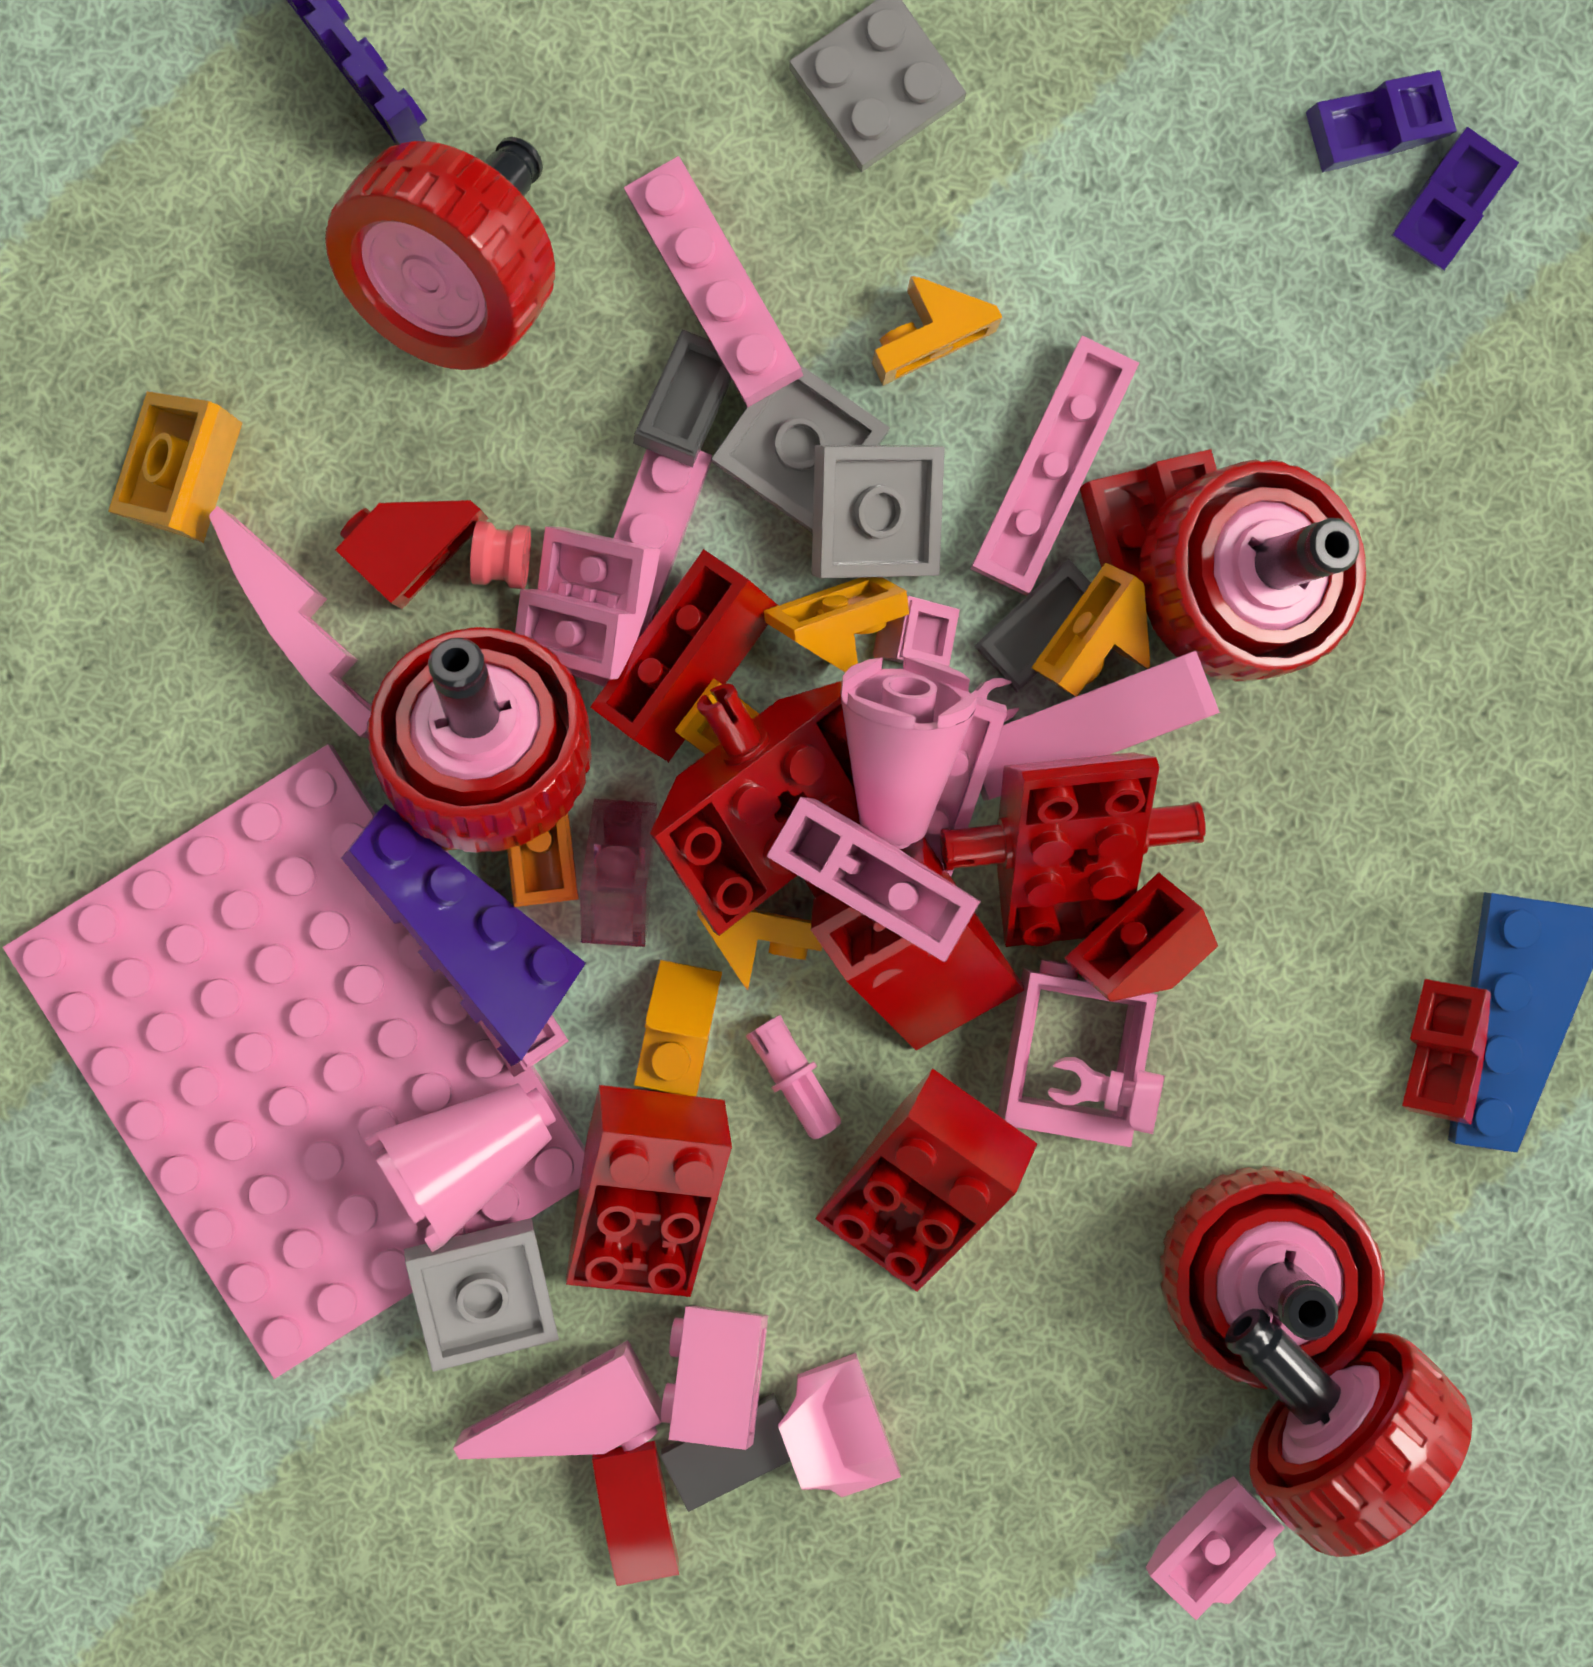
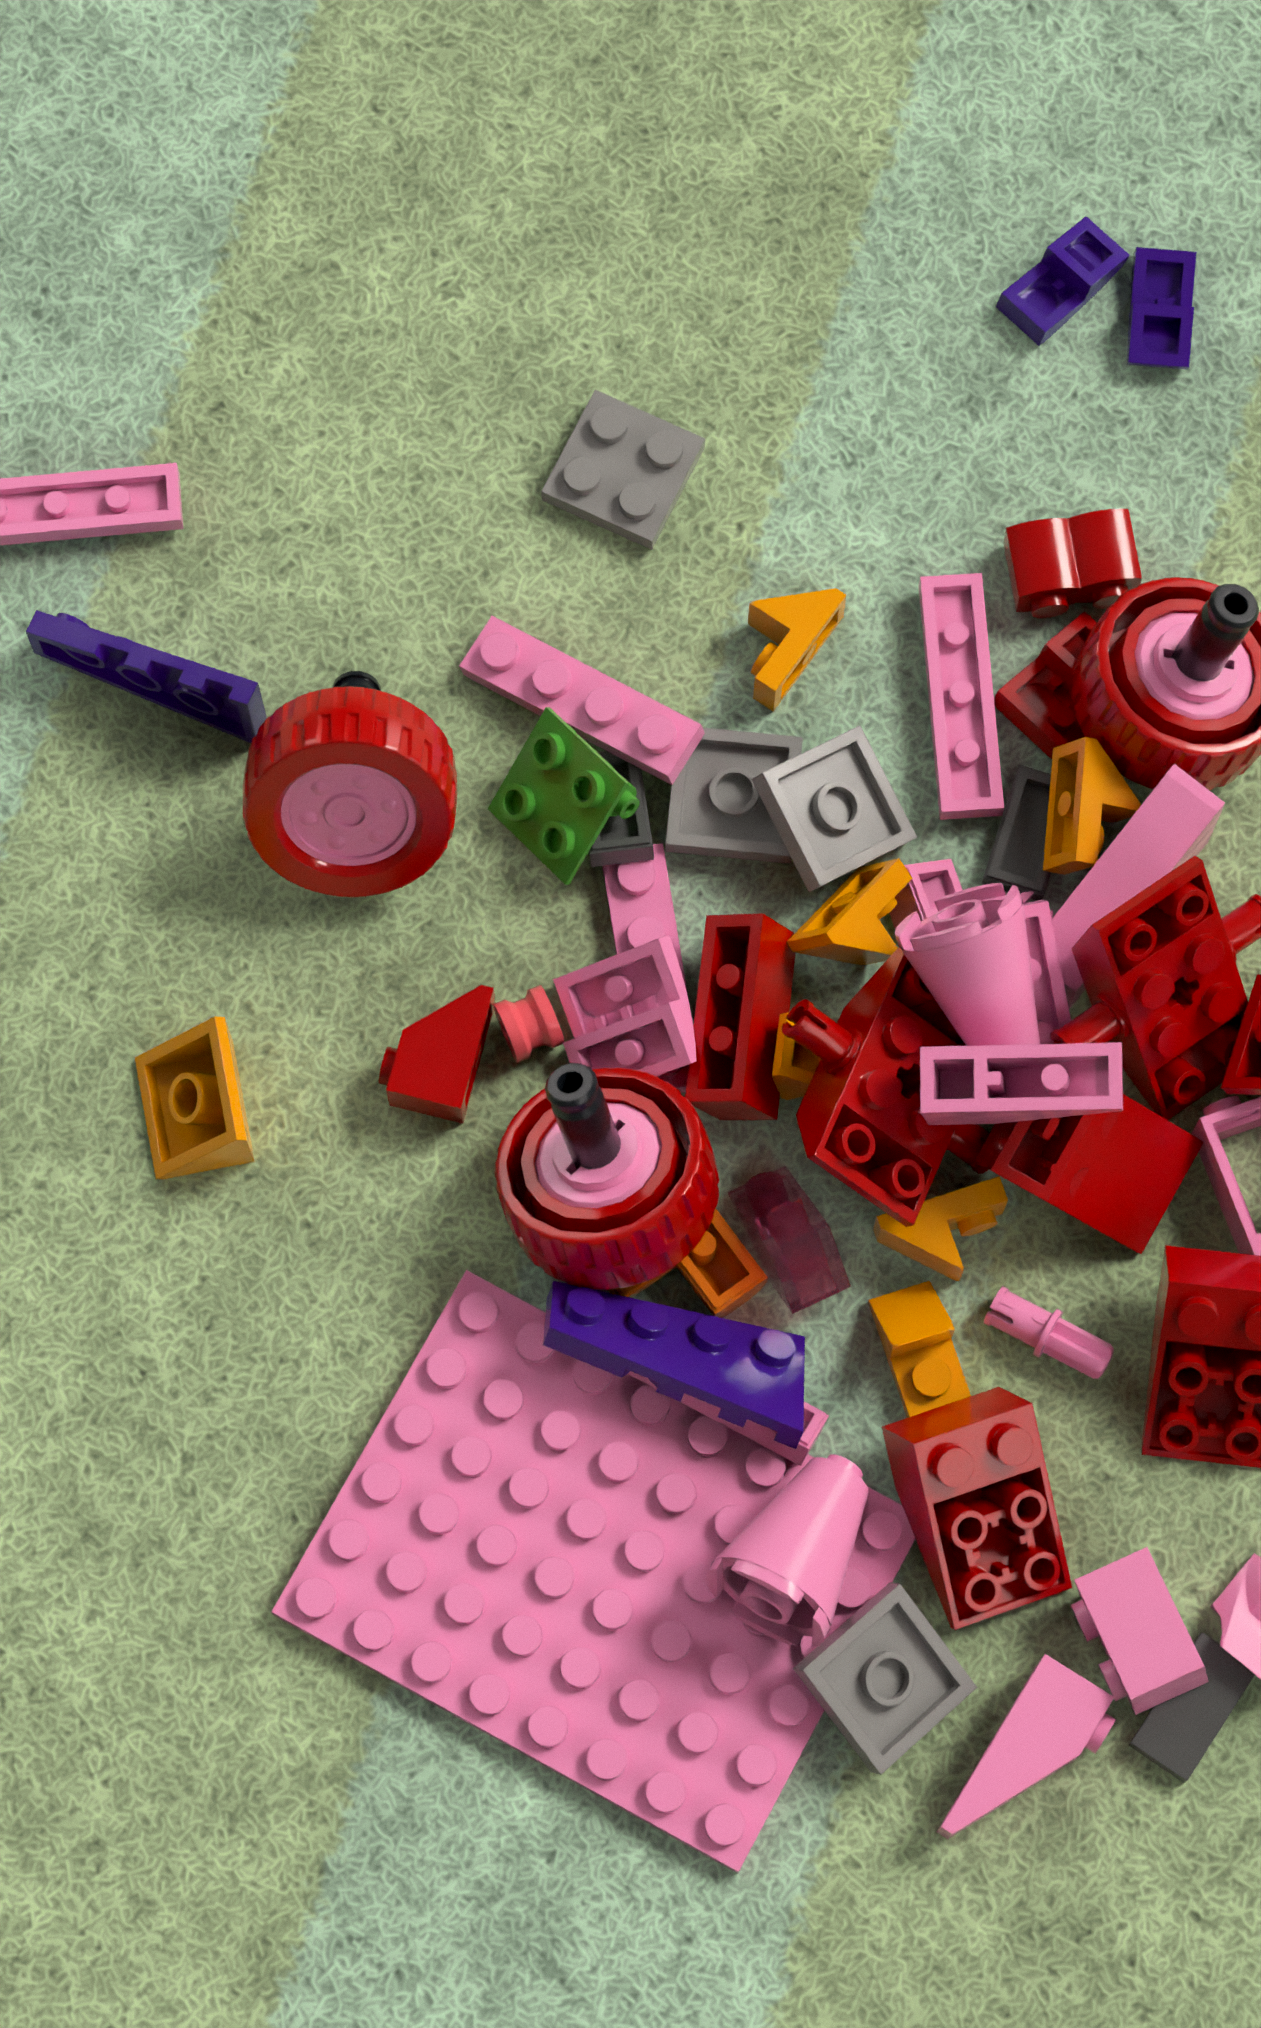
camera: 30 degrees left, 15 degrees down
(286, 607) = (361, 1166): bright pink slope -> none
(635, 1514) = (1140, 1810): red slope -> none
(643, 362) = (561, 796): none -> bright green hinge
(1228, 398) = (1071, 561): none -> red brick

